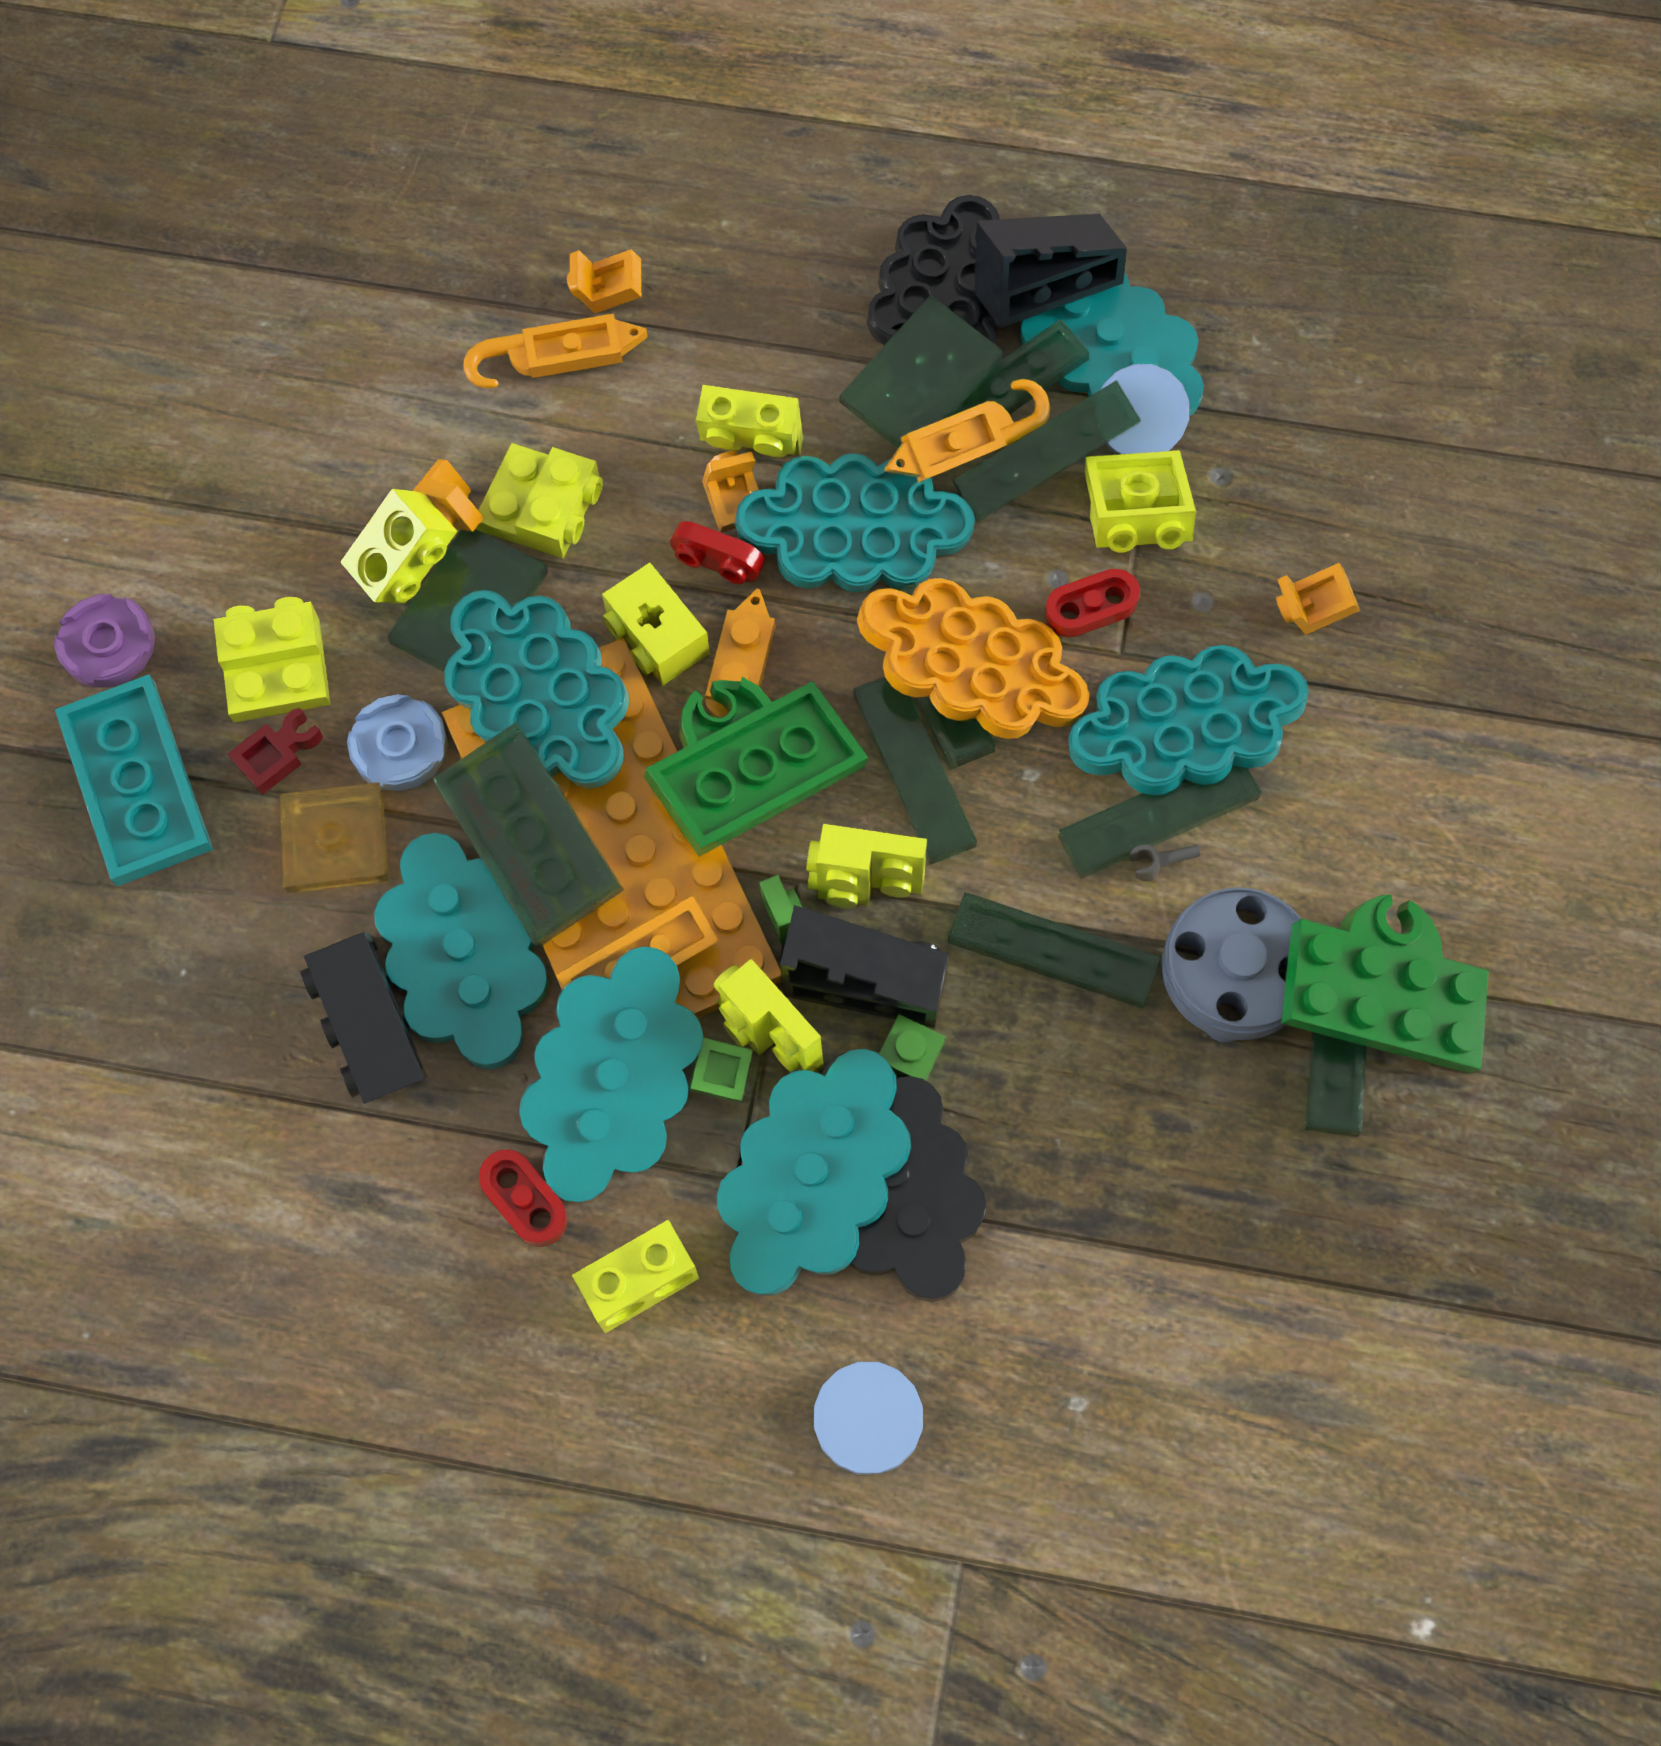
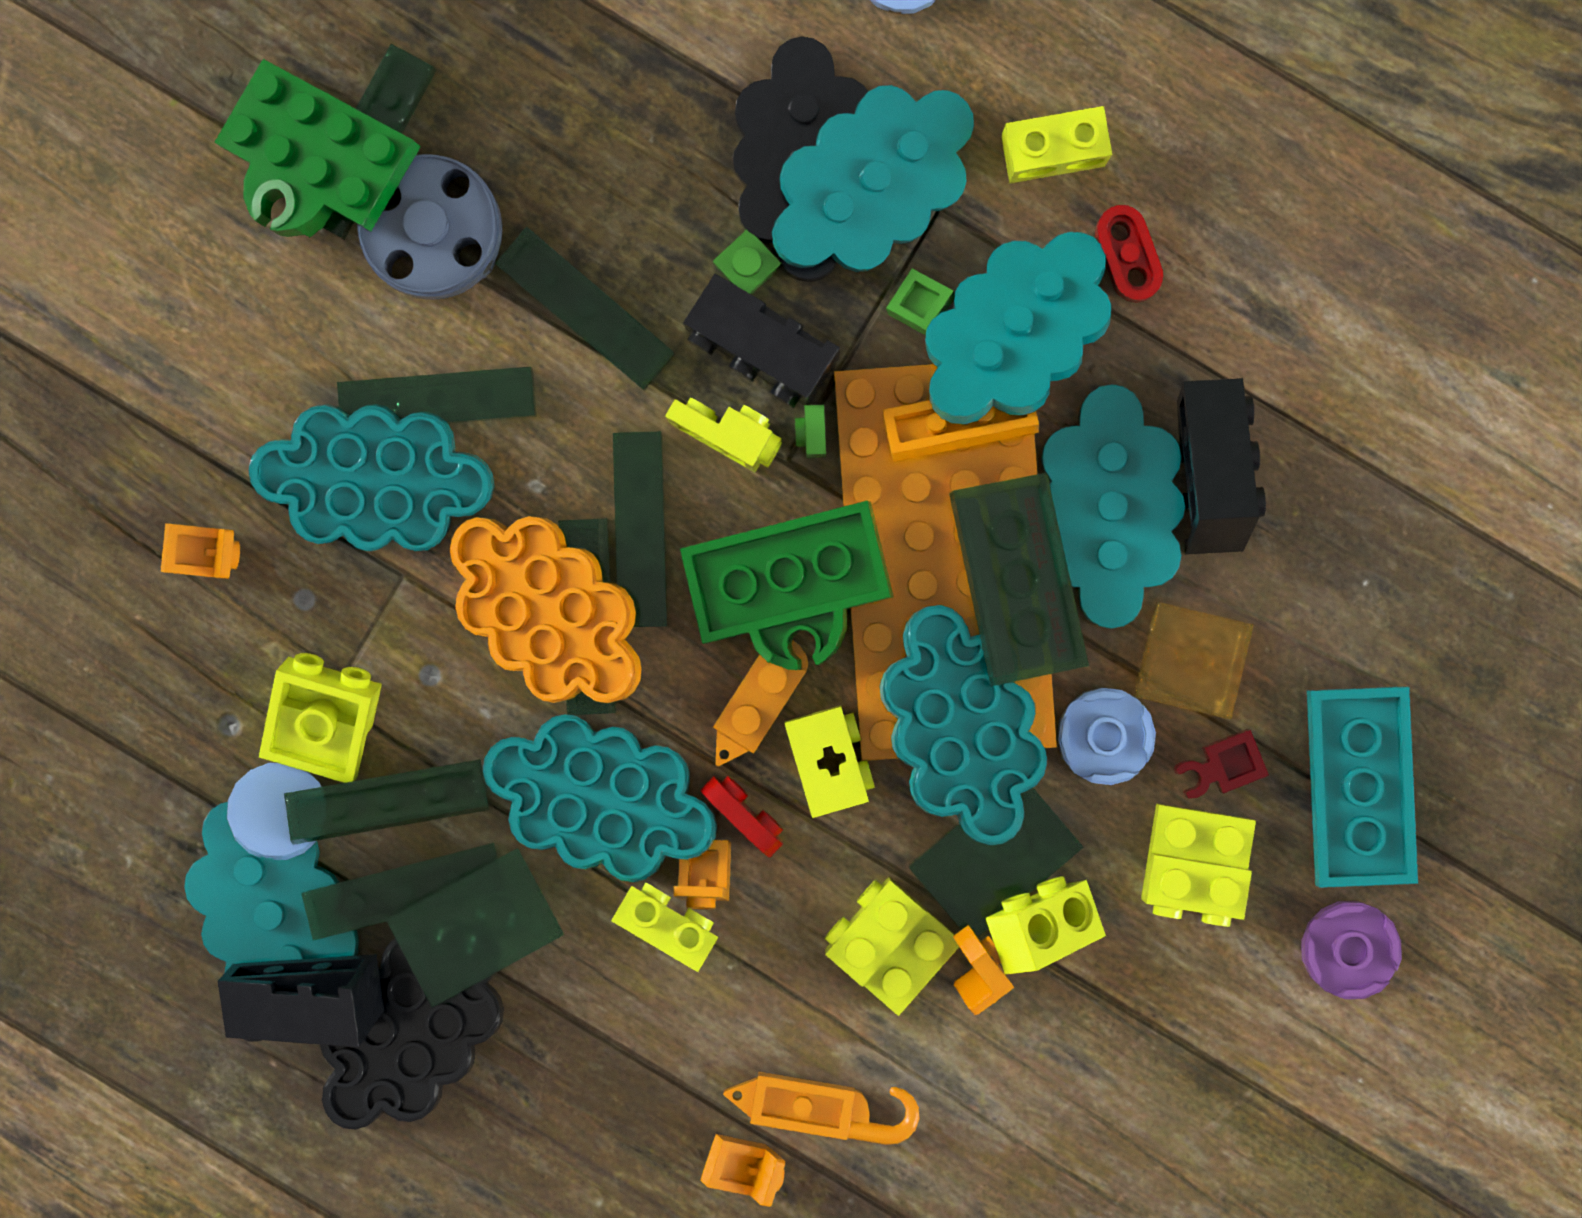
camera: 165 degrees left, 20 degrees up
(763, 1016) = (871, 330): neon yellow plate -> none
(967, 436) = (458, 842): light orange plate -> none
(1089, 602) = (411, 629): red plate -> none
(1160, 859) = (451, 356): dark grey hand -> none

